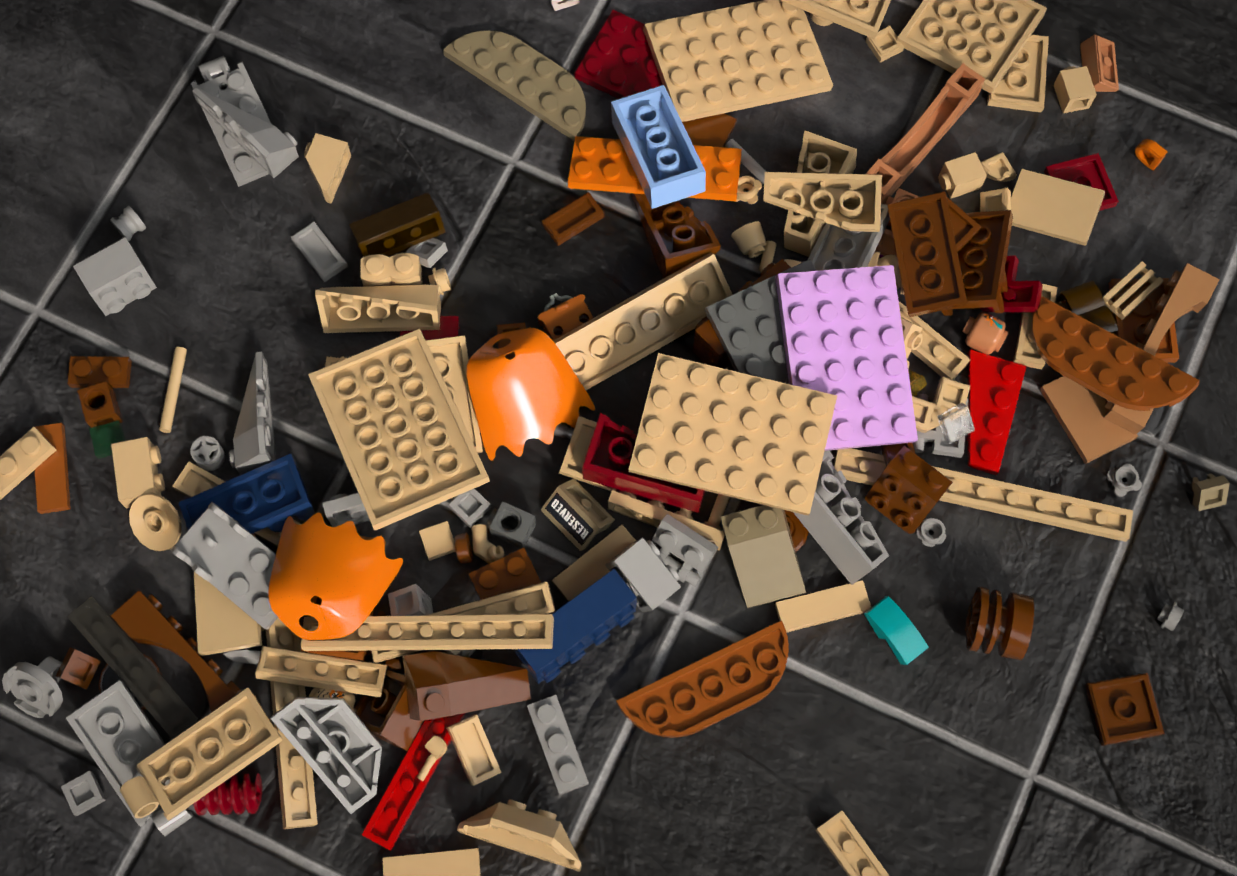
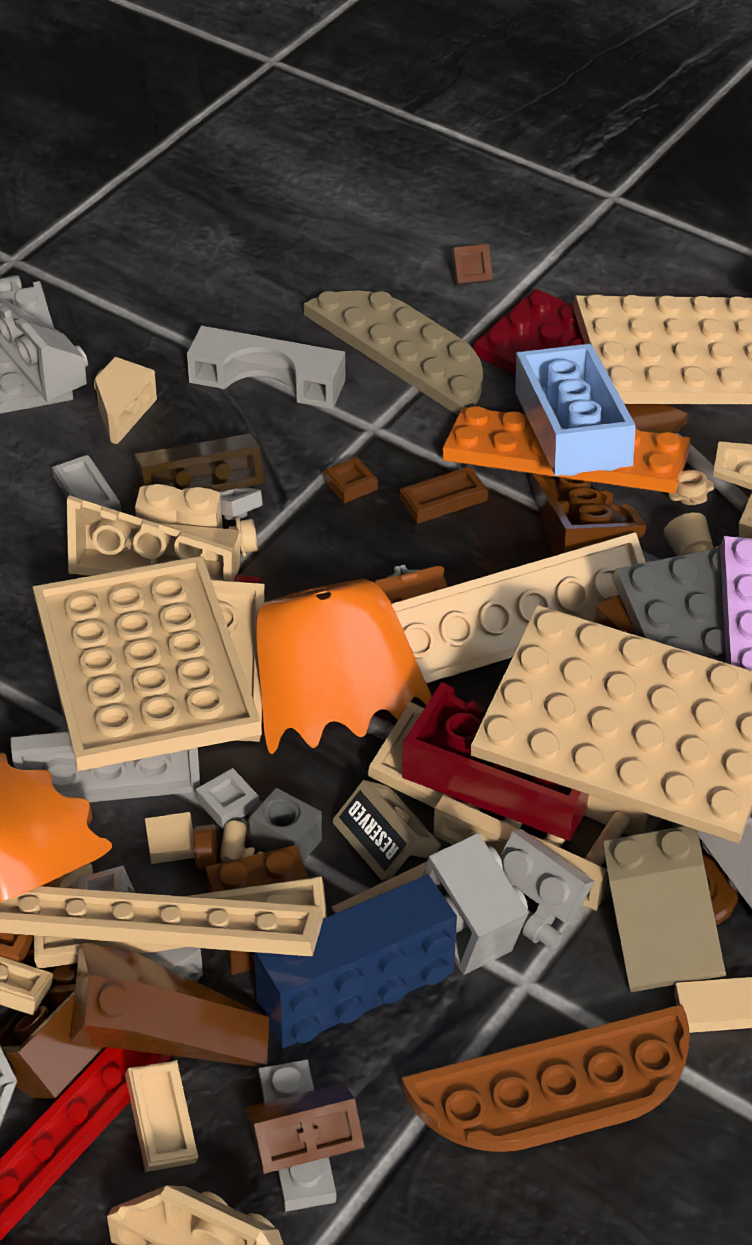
camera: 10 degrees right, 25 degrees down
(394, 113) = (226, 356): none -> light grey arch
(437, 748) = (103, 1101): tan hand -> none
(505, 214) = (350, 480): none -> reddish brown tile
(563, 747) = (305, 1127): none -> reddish brown hinge

